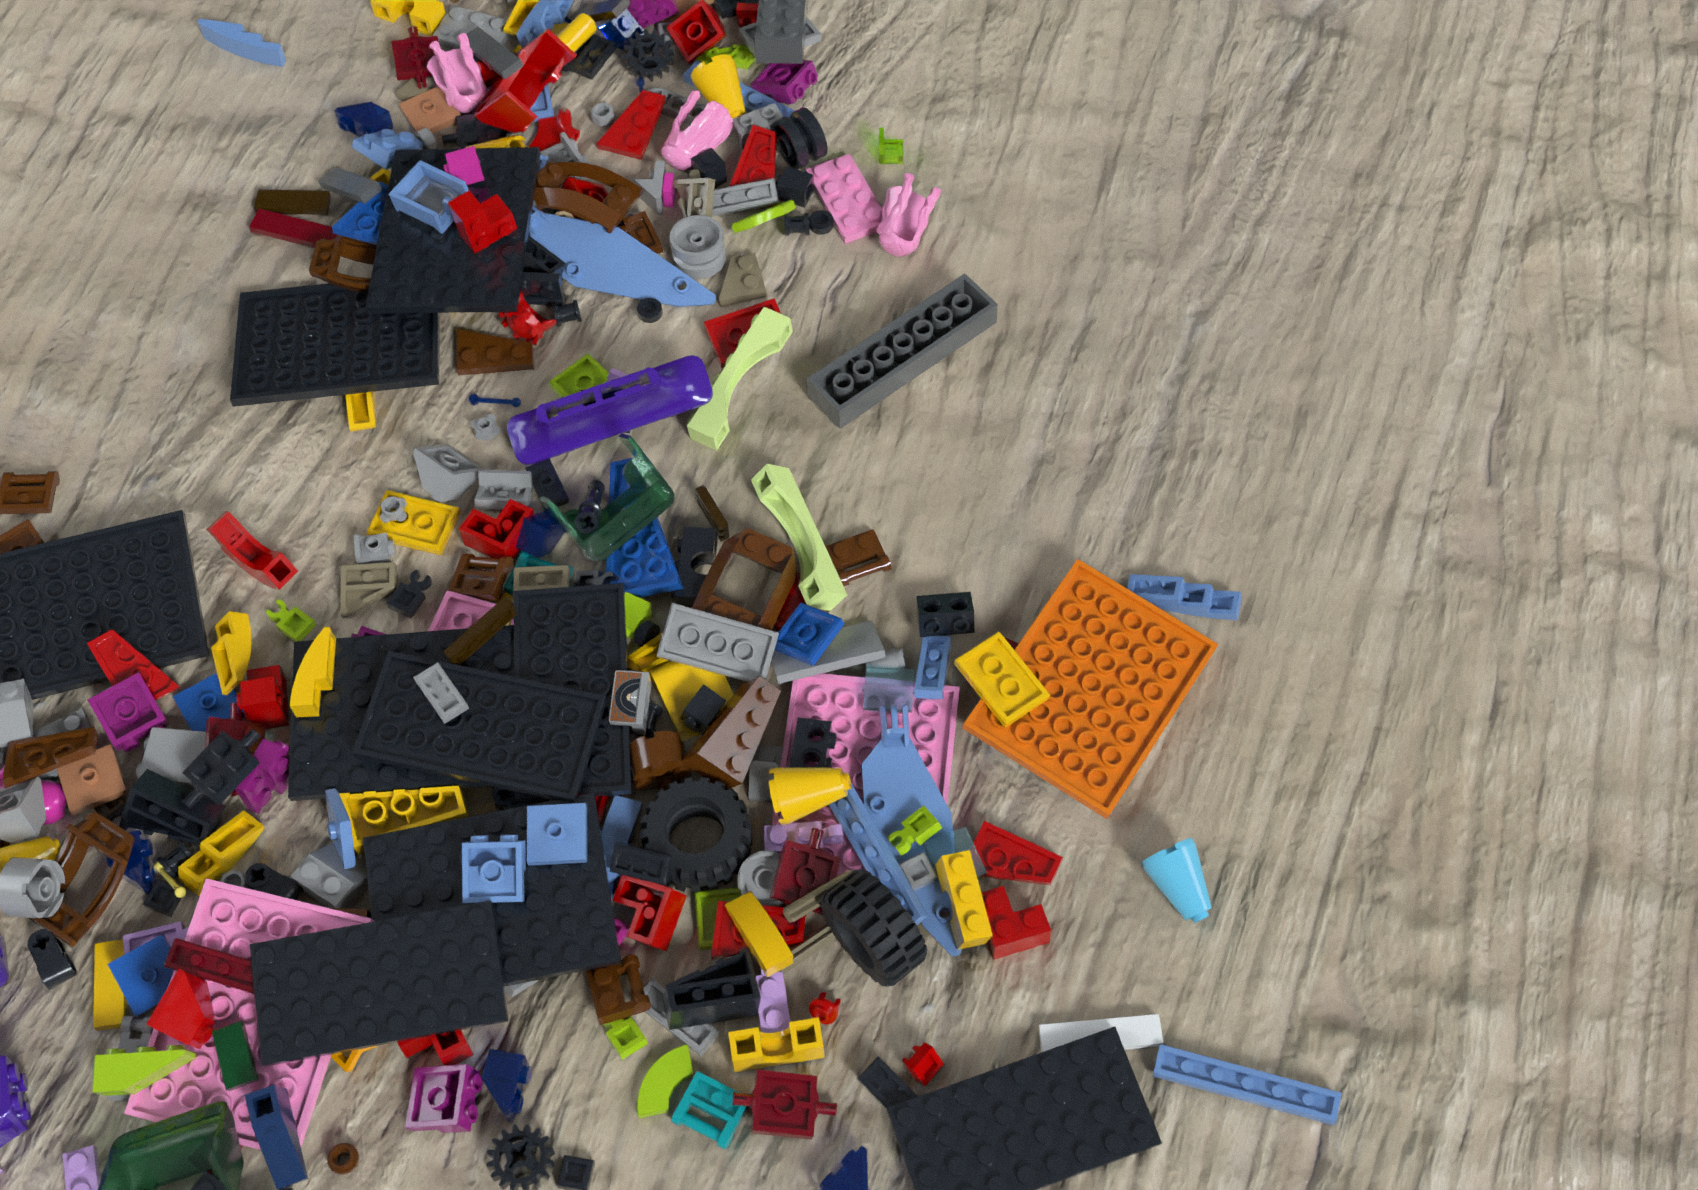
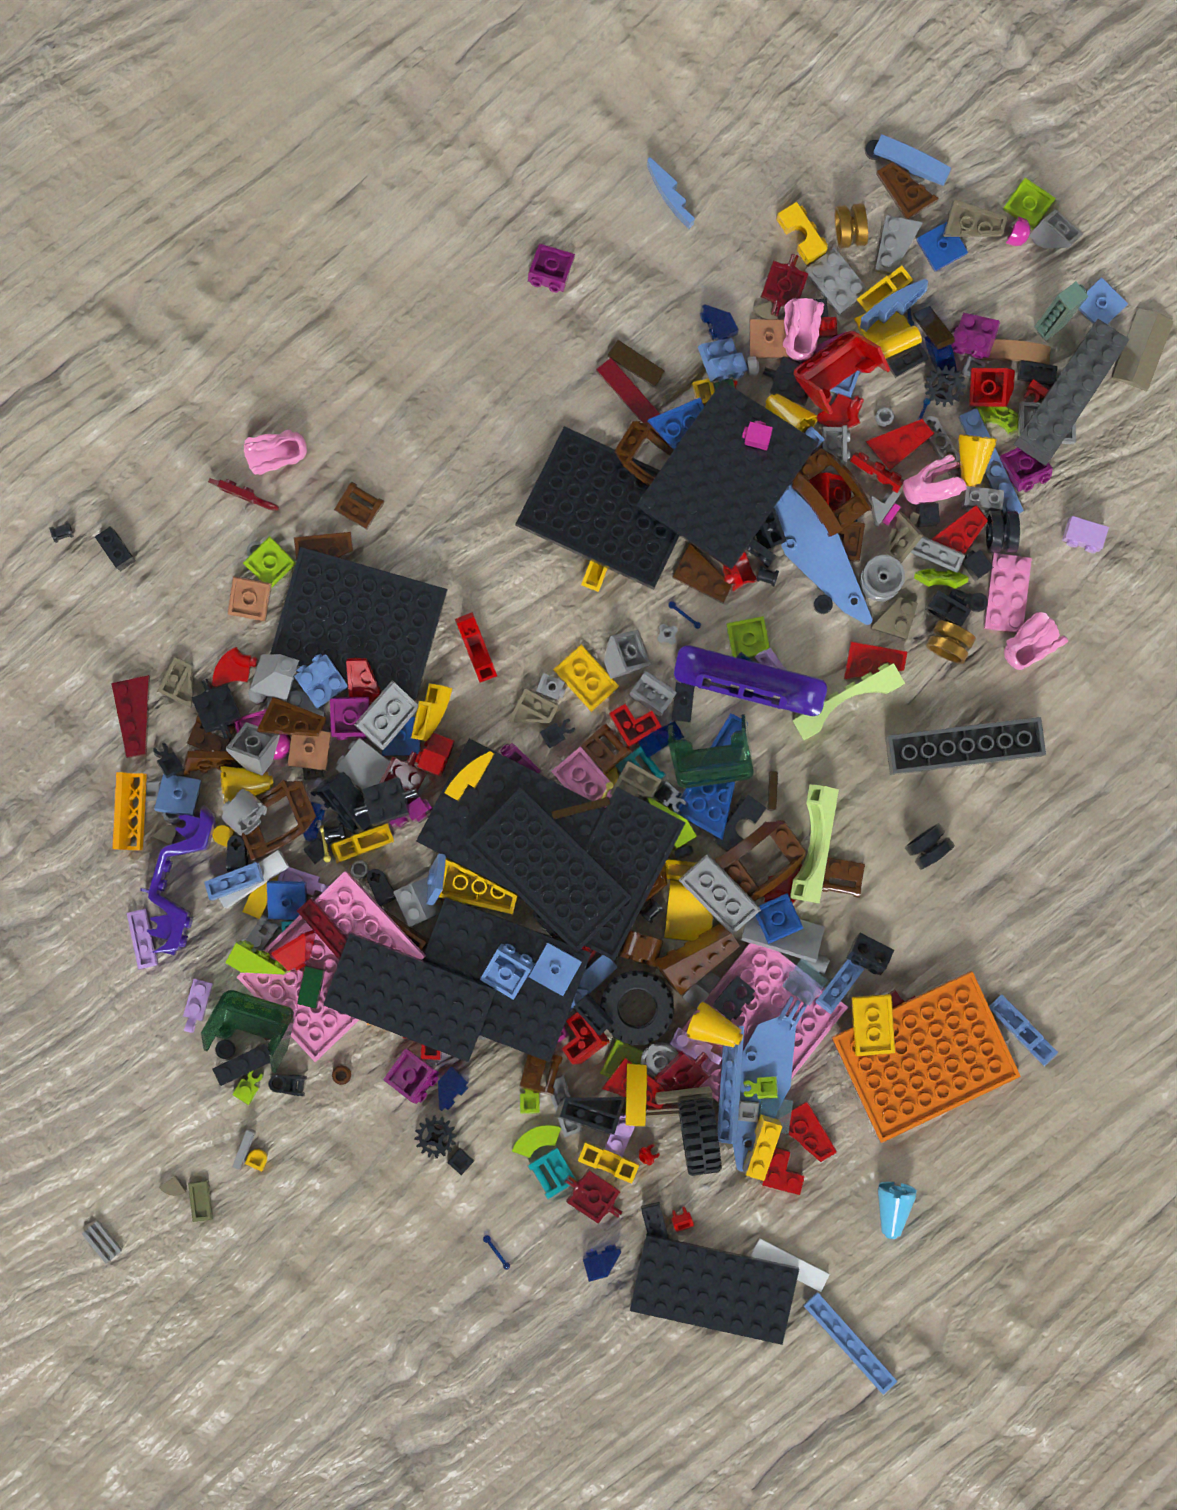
camera: 30 degrees right, 25 degrees up
(17, 950) = (222, 834): none -> yellow tile
(60, 989) = (234, 881): none -> medium blue plate
(65, 690) = (321, 680): none -> medium blue plate
(87, 977) = (270, 868): none -> white tile
(142, 164) = (550, 268): none -> magenta plate
(175, 681) = (387, 715): none -> light grey plate
(277, 1134) = (312, 1048): dark blue slope -> none
(291, 623) = (477, 709): lime plate -> none
(350, 185) = (679, 383): dark grey tile -> none
(390, 504) = (572, 666): light grey plate -> none
(426, 195) = (722, 446): medium blue window -> none
(441, 693) = (536, 839): light grey plate -> none
(481, 222) = (746, 494): red brick -> none
(493, 53) = (835, 323): dark grey tile -> none
(590, 509) = (696, 749): black pin -> none
(627, 158) = (884, 476): none -> red wing
(630, 700) = (645, 902): panel -> none
(702, 710) = (685, 930): black brick -> none
(791, 237) = (948, 609): none -> black brick
(815, 261) = (951, 642): none -> pearl gold wheel
(889, 102) = (1085, 534): none -> lavender brick
(890, 149) = (1061, 571): clear neon green panel -> none
(933, 463) = (930, 846): none -> black wheel

